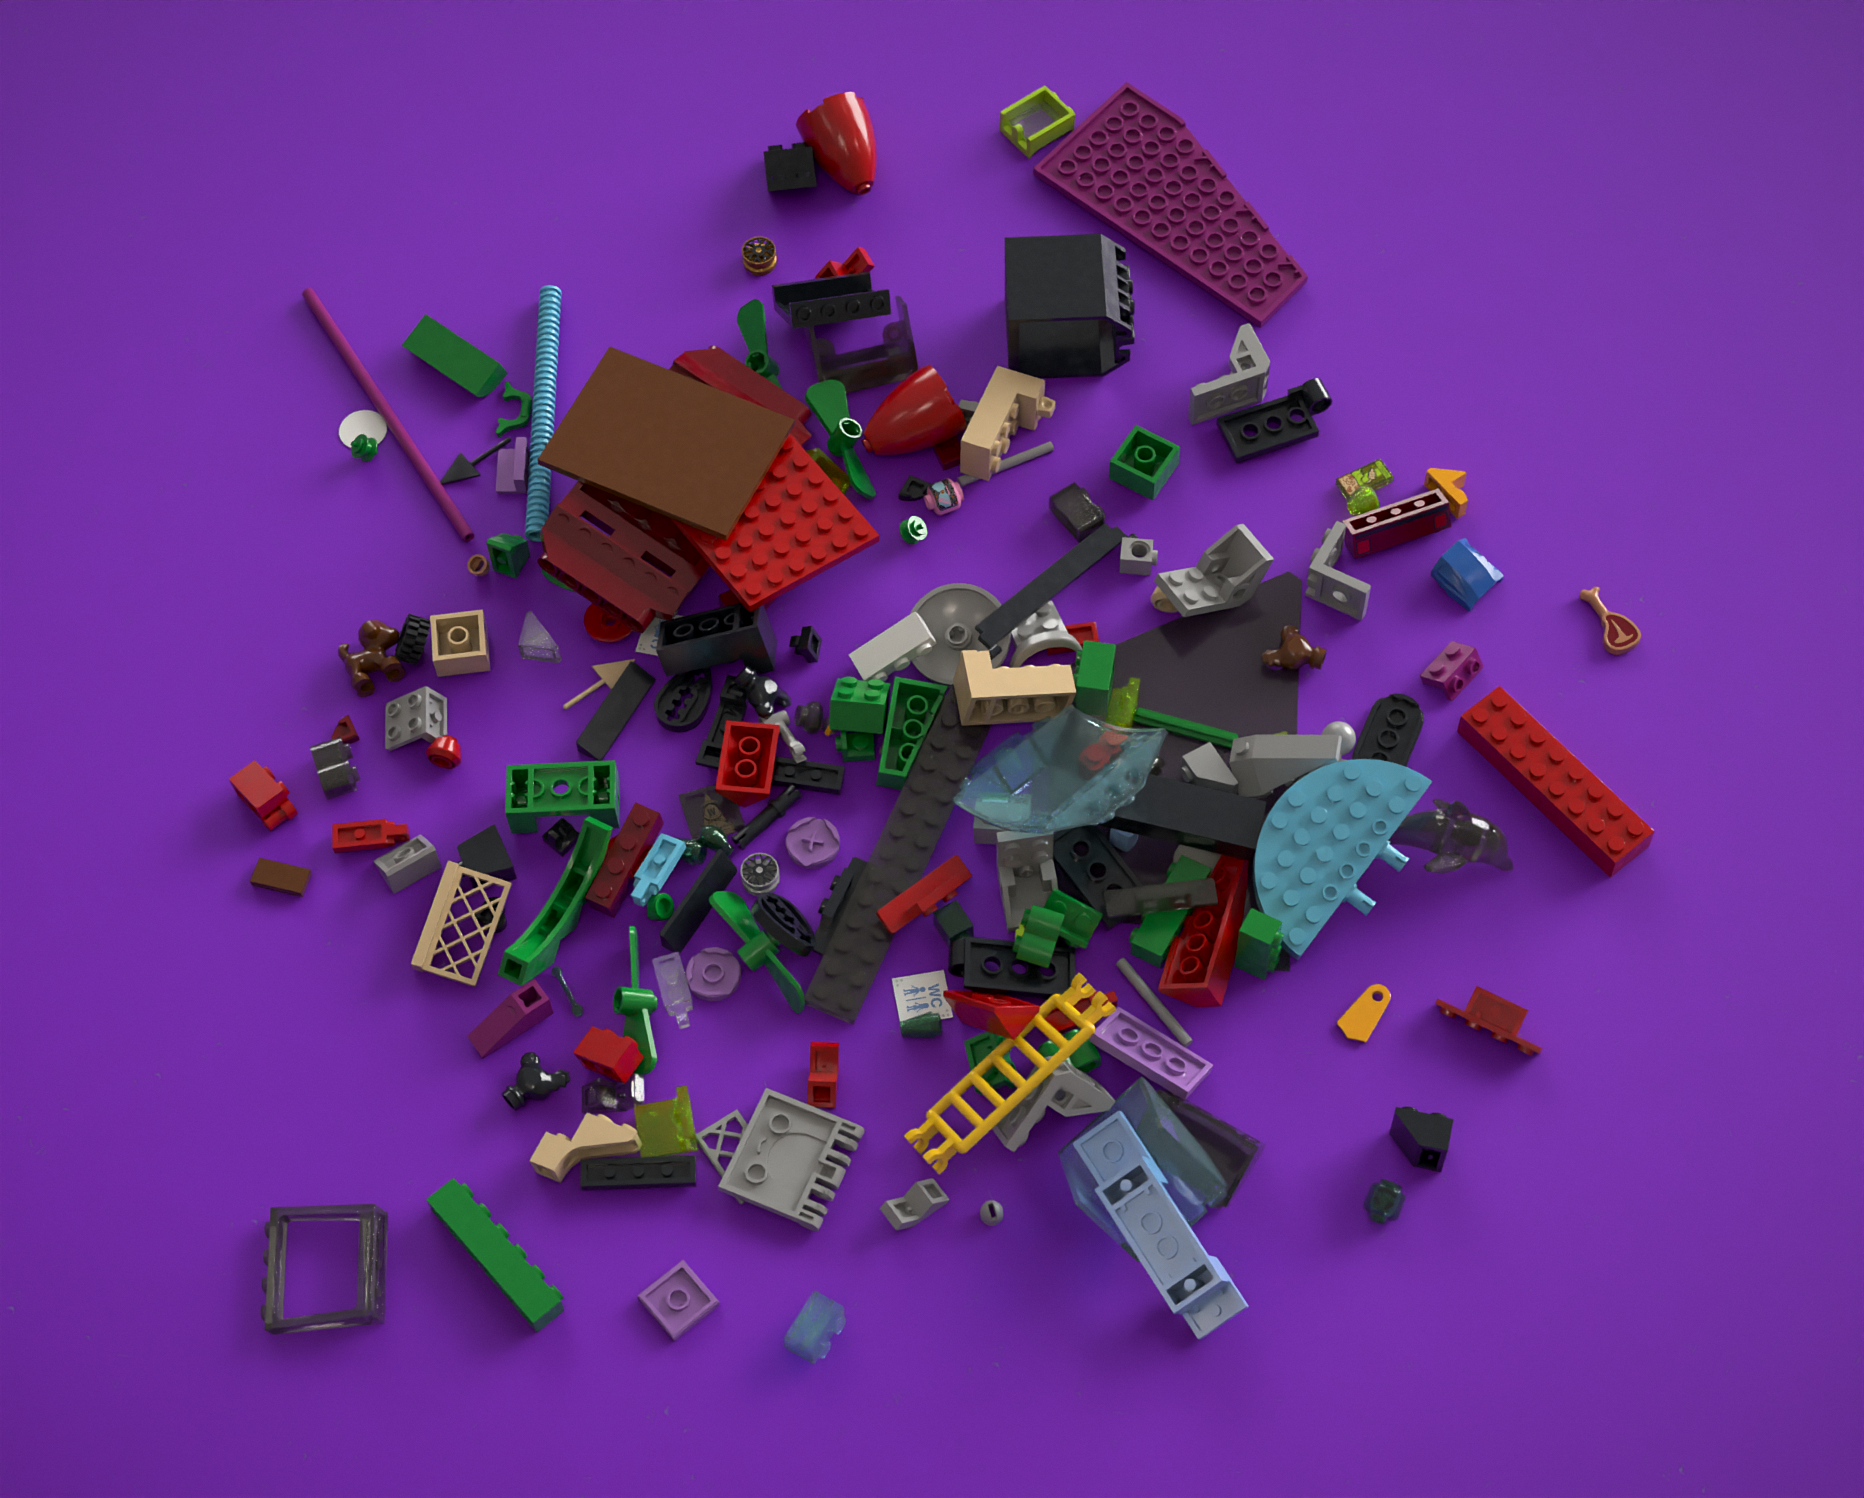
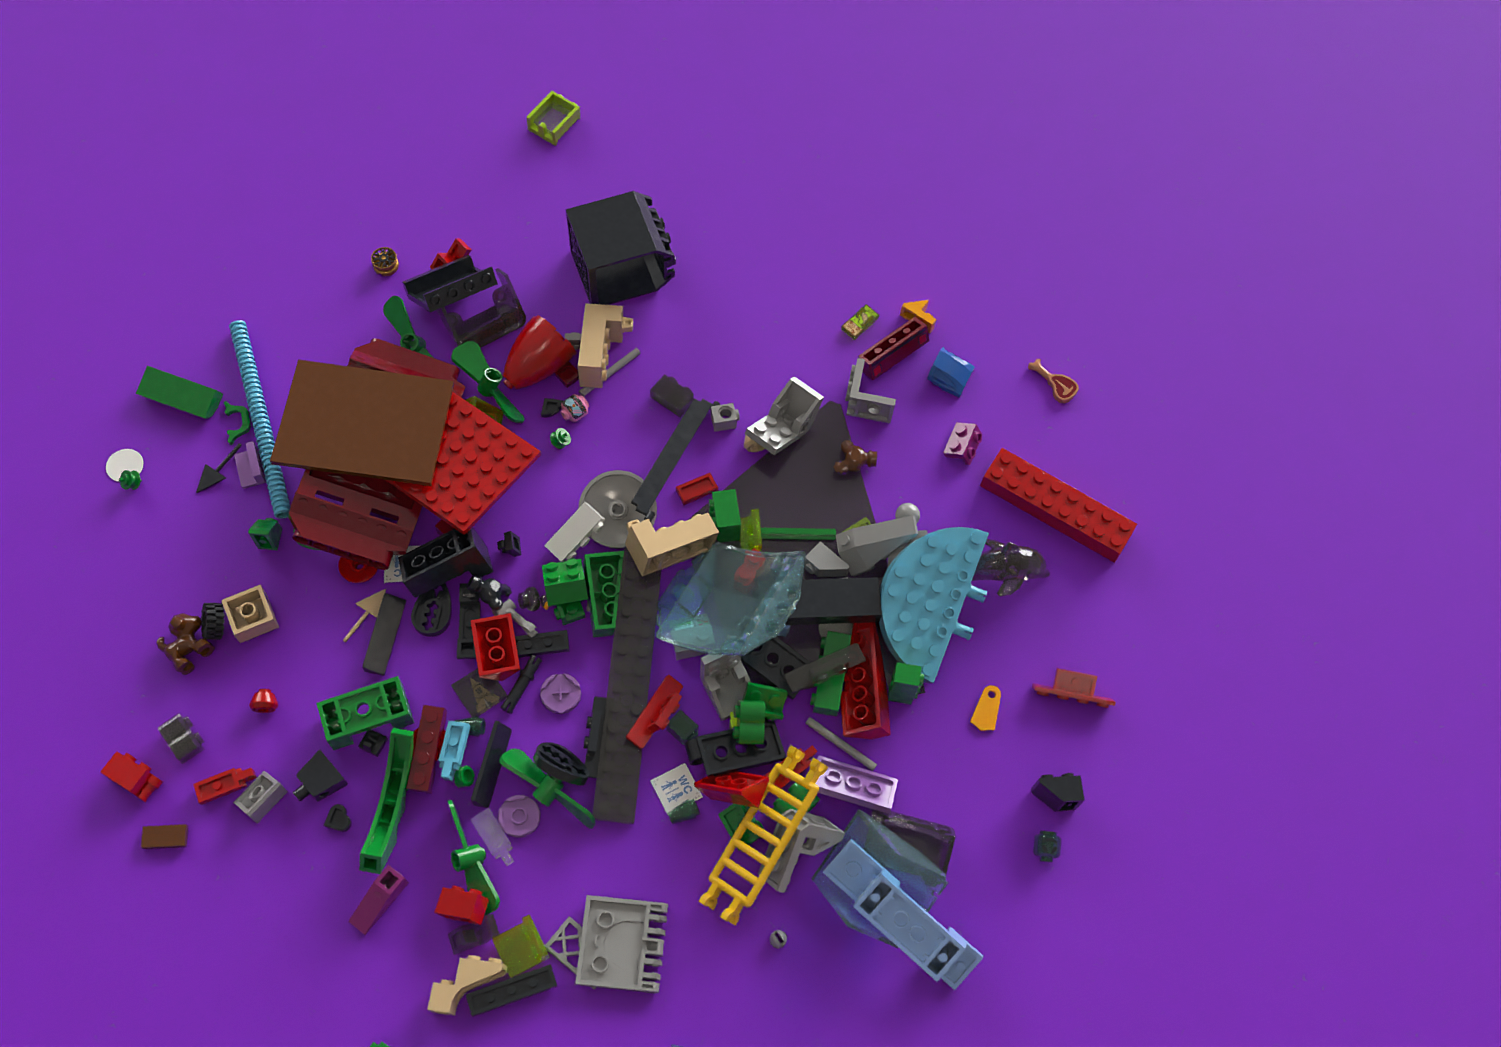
camera: 25 degrees left, 5 degrees up
(346, 731) = (181, 706): dark red tile -> none
(388, 415) = (141, 449): magenta piece -> none
(415, 717) = (232, 681): light grey bracket -> none
(439, 913) = (298, 835): tan fence -> none
(475, 563) = (243, 547): nougat hinge -> none
(533, 1082) = (410, 943): black animal -> none
(536, 642) = (308, 597): clear slope -> none
(577, 1009) = (425, 873): hinge -> none
(715, 839) = (489, 712): clear green cylinder -> none
(760, 874) = (530, 730): light grey wheel -> none
(789, 167) = (387, 191): black bracket -> none
(823, 1074) = (624, 871): red slope -> none
(842, 140) = (420, 163): red cylinder -> none
(916, 1205) = (722, 951): light grey slope -> none
(1040, 632) = (675, 493): light grey piece -> none
(1144, 462) = (708, 347): green brick -> none
(1170, 196) = (661, 150): magenta wing -> none
(1238, 390) = (756, 275): light grey bracket -> none
(1301, 400) = (801, 275): black hinge -> none
(1362, 500) = (865, 338): clear neon green cone -> none
(1390, 730) = (937, 501): black tile -> none

